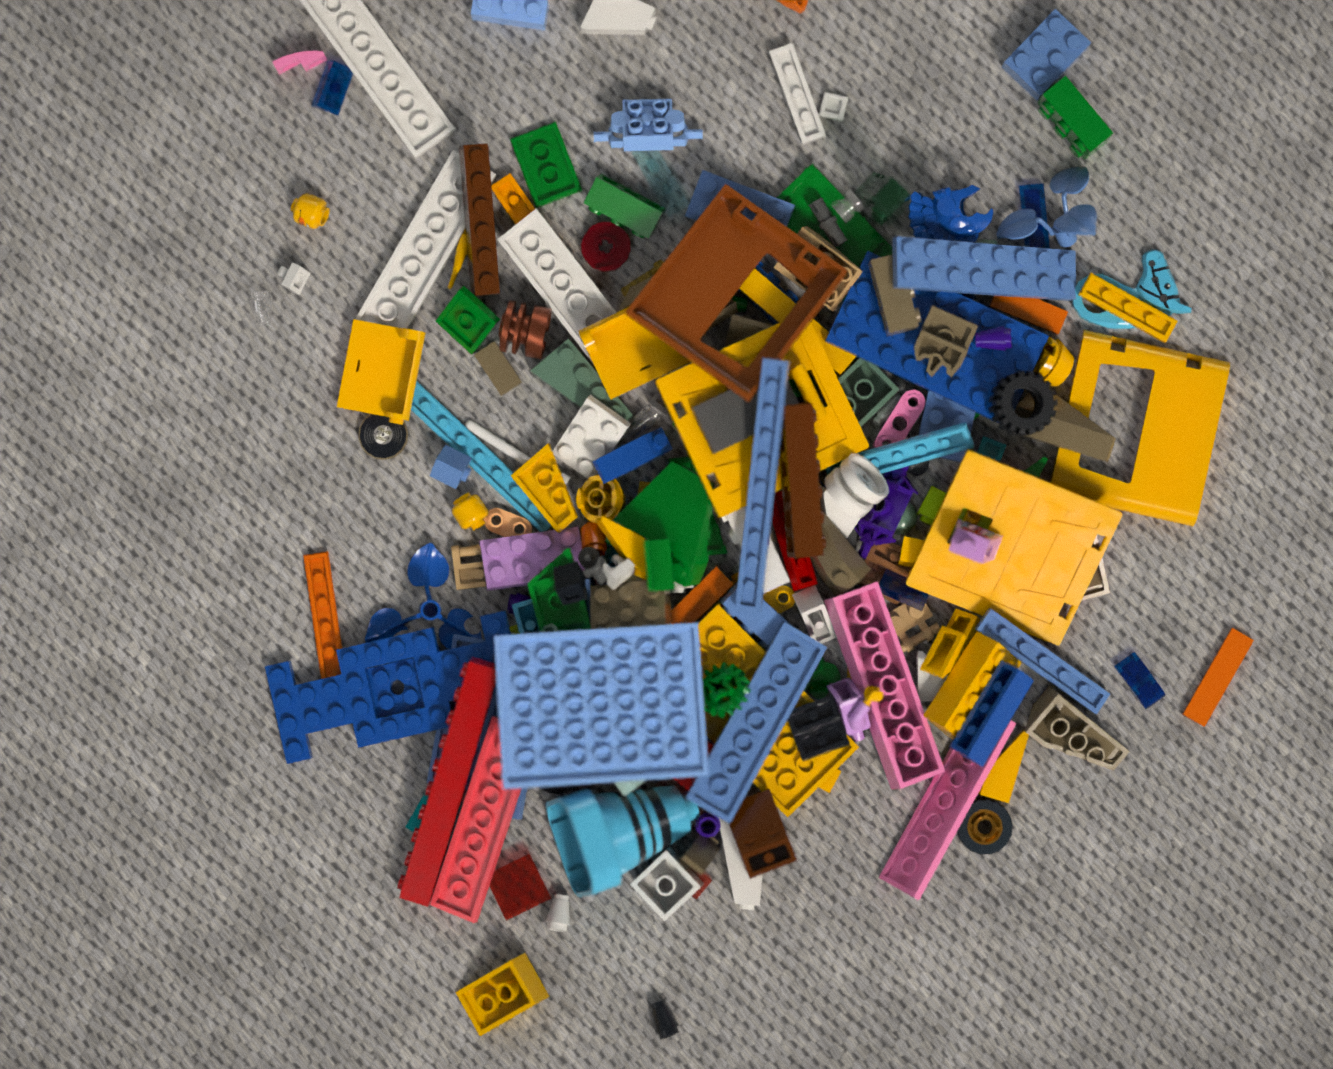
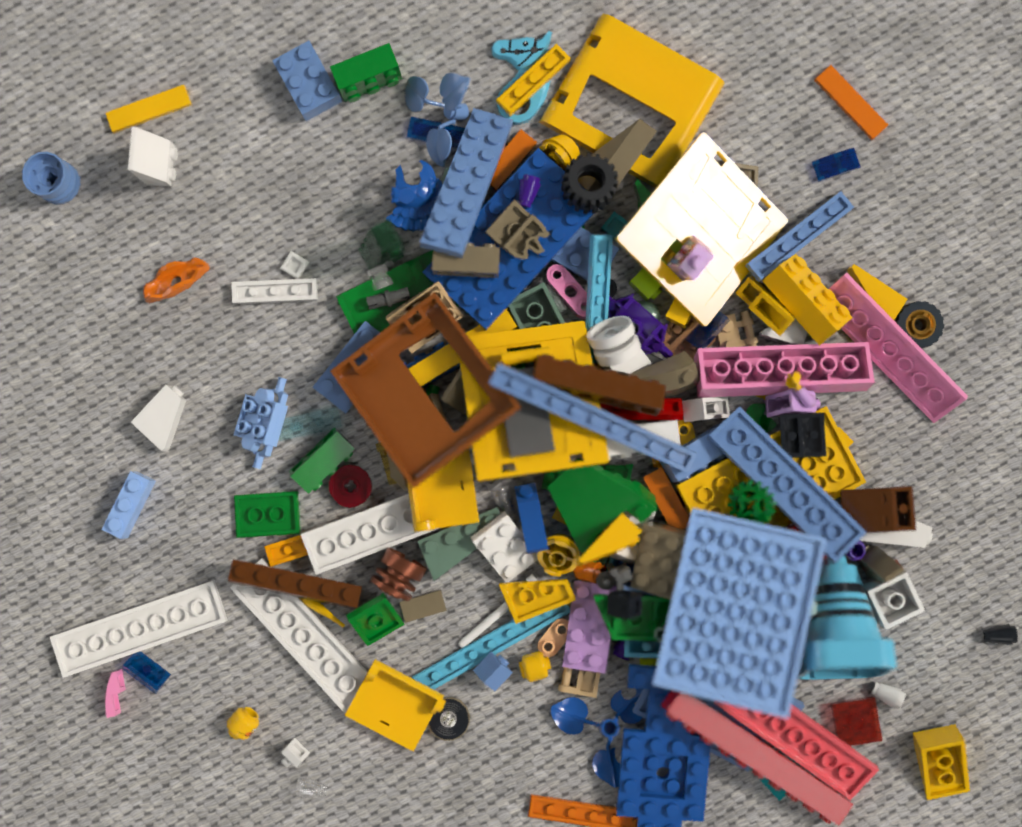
camera: 70 degrees left, 0 degrees up
(618, 575) = (627, 555): white tile -> none
(659, 565) = (633, 525): green panel -> none
(991, 713) = (835, 288): blue brick -> none
(1066, 728) = (857, 236): dark tan wedge -> none

